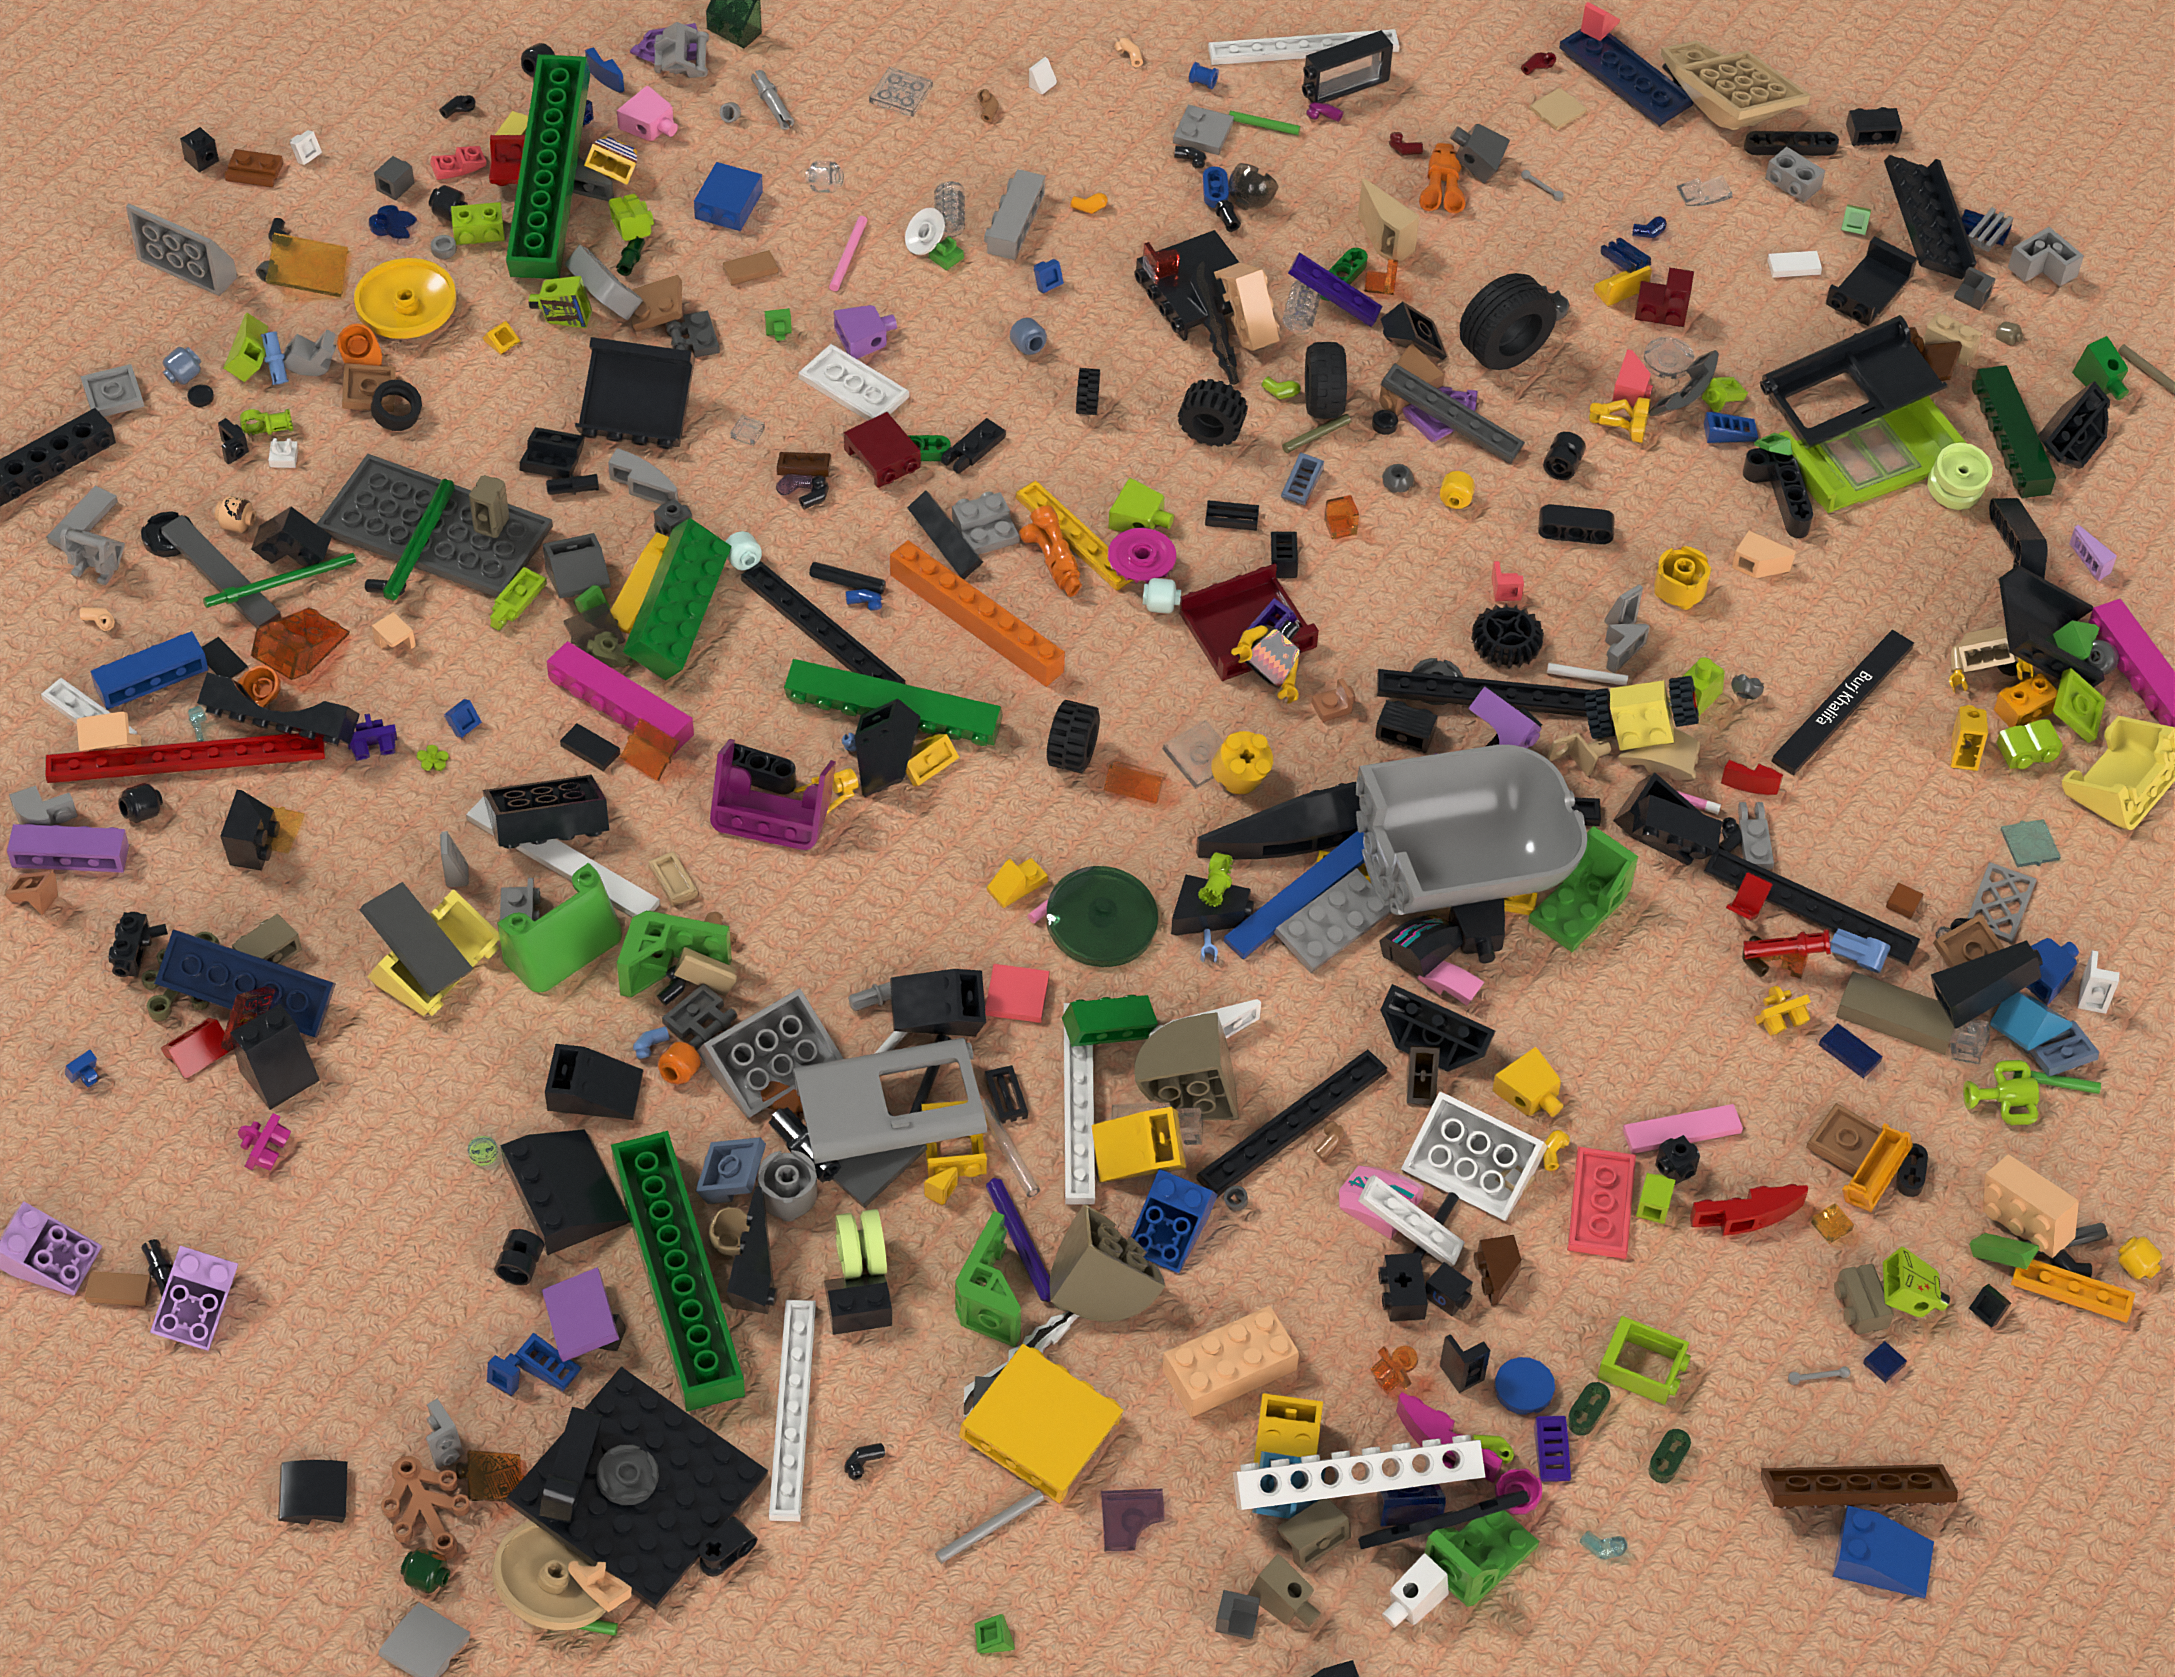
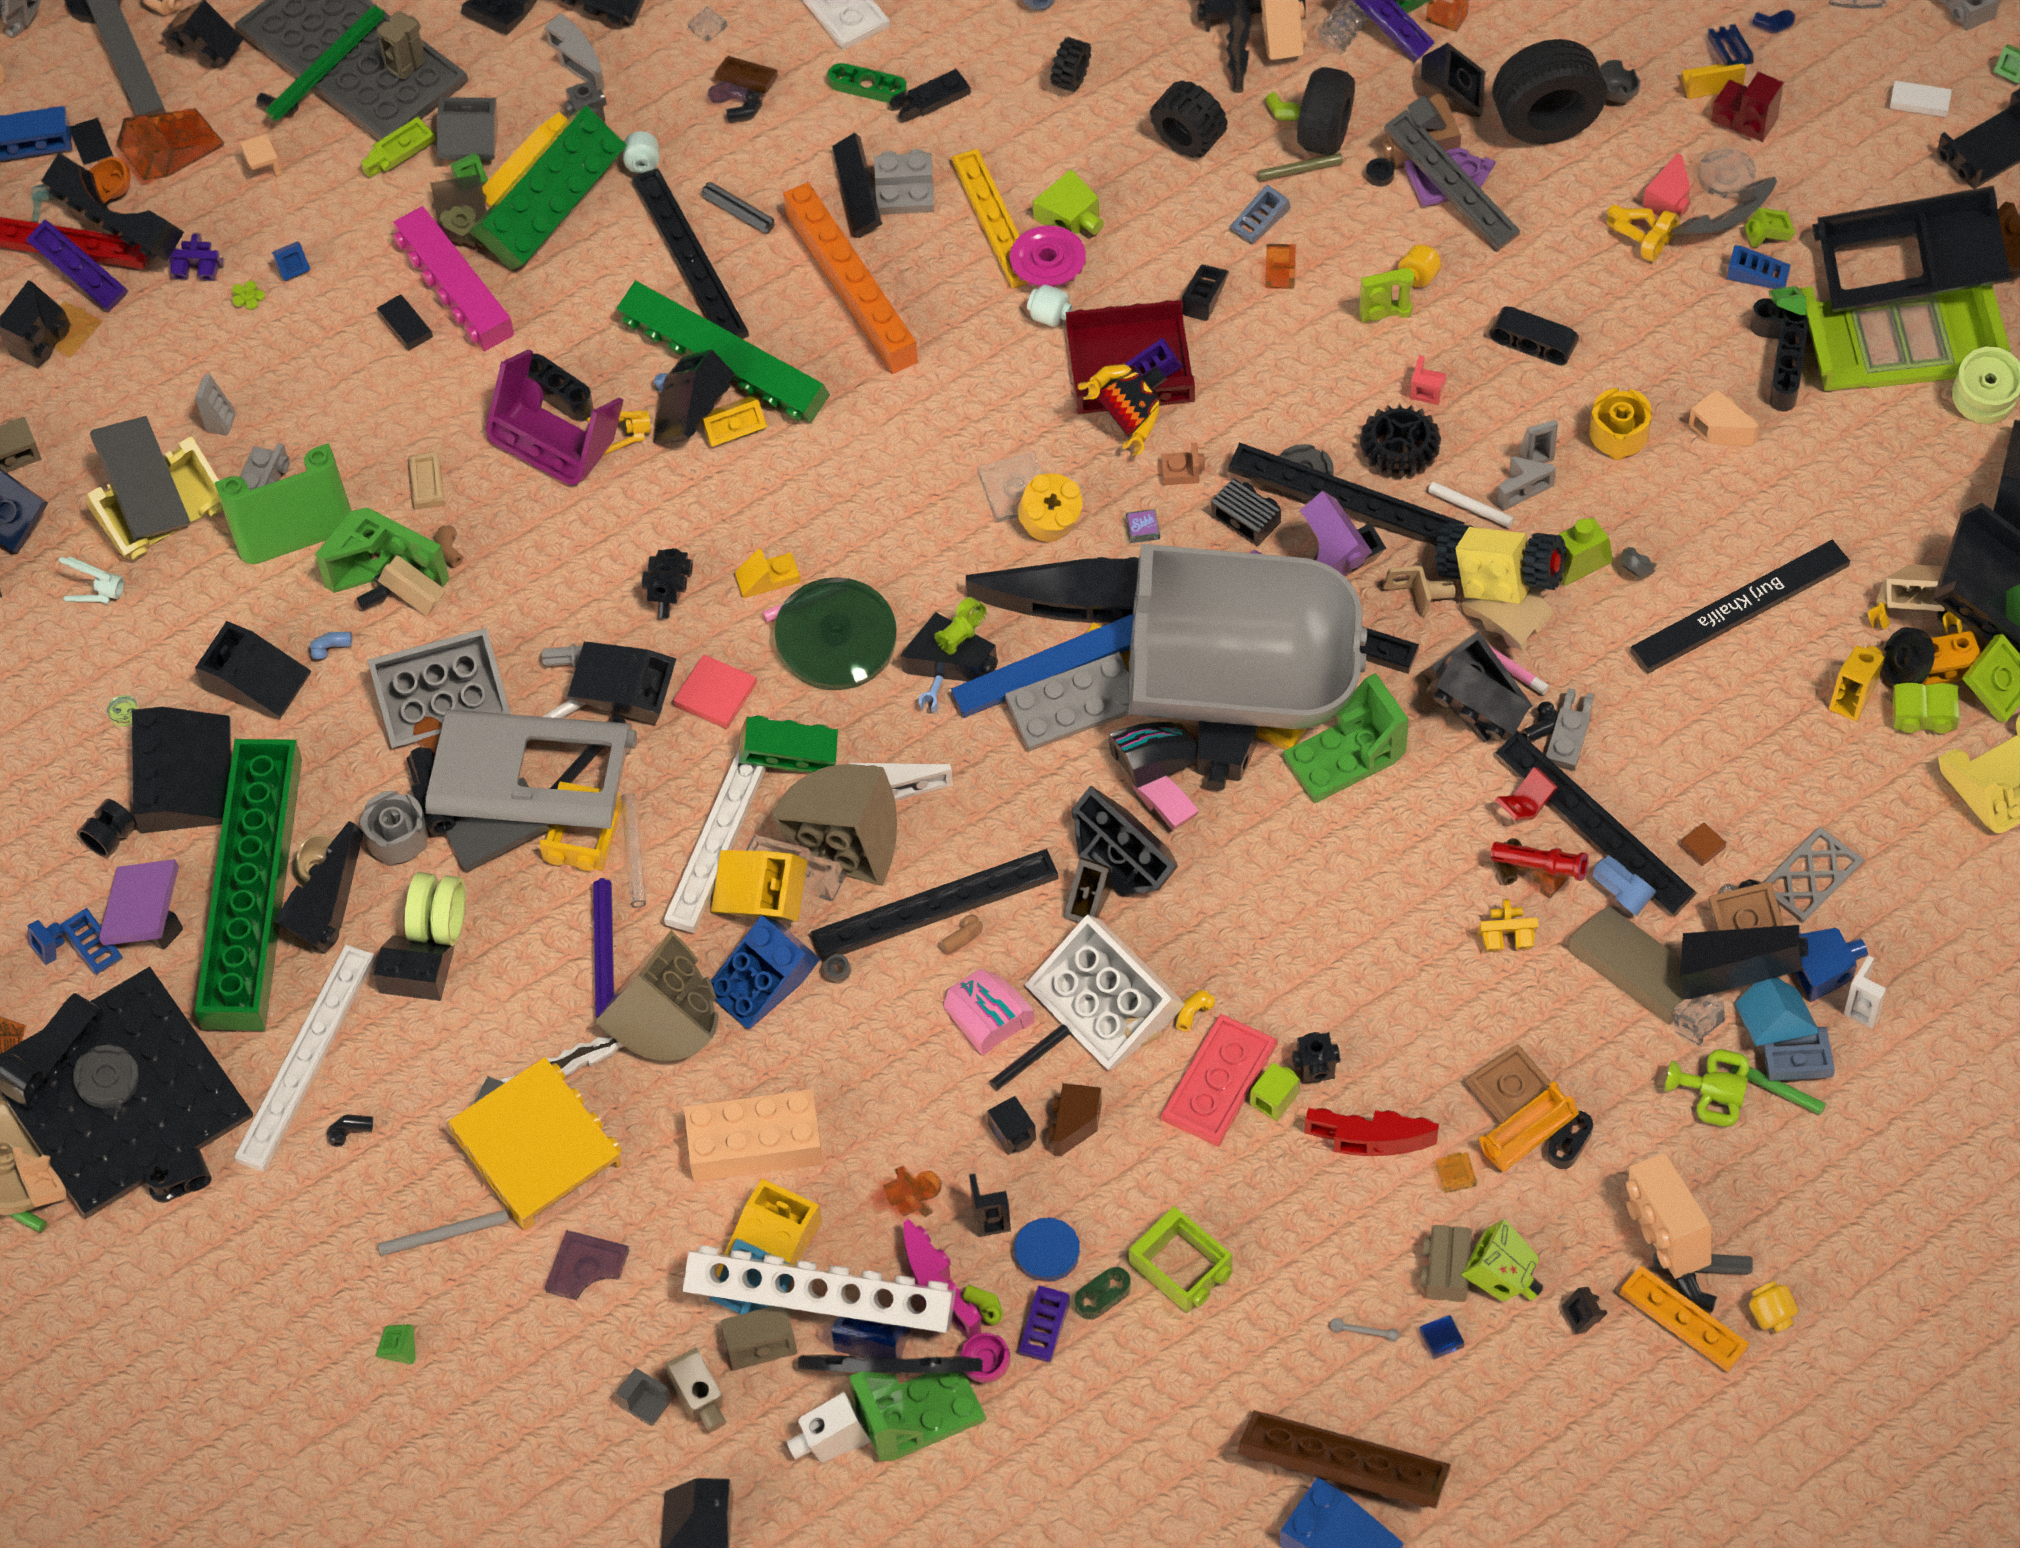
camera: 25 degrees right, 5 degrees up
(231, 594) = (120, 77): green bar -> none
(263, 769) = (77, 265): none -> dark purple tile
(418, 1042) = (105, 583): none -> light aqua plant
(546, 811) = (326, 378): black slope -> none
(567, 861) = (325, 429): white tile -> none
(572, 484) = (506, 41): black axle -> none
(649, 749) = (457, 339): clear orange piece -> none
(679, 1063) = (346, 673): orange head -> none
(694, 1011) = (387, 623): dark grey plate -> none
(730, 1169) = (342, 795): sand blue plate -> none
(862, 596) = (747, 231): blue arm -> none
(883, 449) = (832, 77): dark red panel -> none
(935, 906) = (667, 578): none -> black brick
(941, 1185) = (548, 870): yellow slope -> none
(991, 1307) = (529, 981): bright green bracket -> none
(1011, 1113) = (655, 816): black tile -> none
(1058, 557) = (958, 204): orange piece -> none
(1073, 736) = (883, 434): black tyre -> none
(1134, 781) = (934, 498): clear orange panel -> none
(1232, 512) = (1170, 232): black tile -> none
(1322, 760) = (1143, 526): none -> tile
(1398, 478) = (1362, 245): dark grey plate -> none
(1404, 1272) = (968, 1126): black brick -> none
(1411, 1221) = (999, 1043): white tile -> none
(1412, 362) = (1426, 114): none -> dark grey slope
(1437, 522) = (1377, 295): none -> lime plate
(1529, 1084) = (1197, 933): yellow torso -> none
(1564, 455) = (1554, 256): black wheel -> none
(1604, 1548) = (1050, 1443): clear light blue arm -> none
(1675, 1458) = (1169, 1373): clear green beam -> none
(1693, 1125) = (1343, 1025): bright pink tile -> none
(1758, 781) = (1599, 669): red slope -> none
(1850, 1050) = (1564, 991): clear blue tile -> none
(2003, 1250) = (1625, 1254): bright green slope -> none
(2004, 705) = (1908, 656): none -> black tile
(2030, 843) = (1877, 817): clear light blue piece -> none

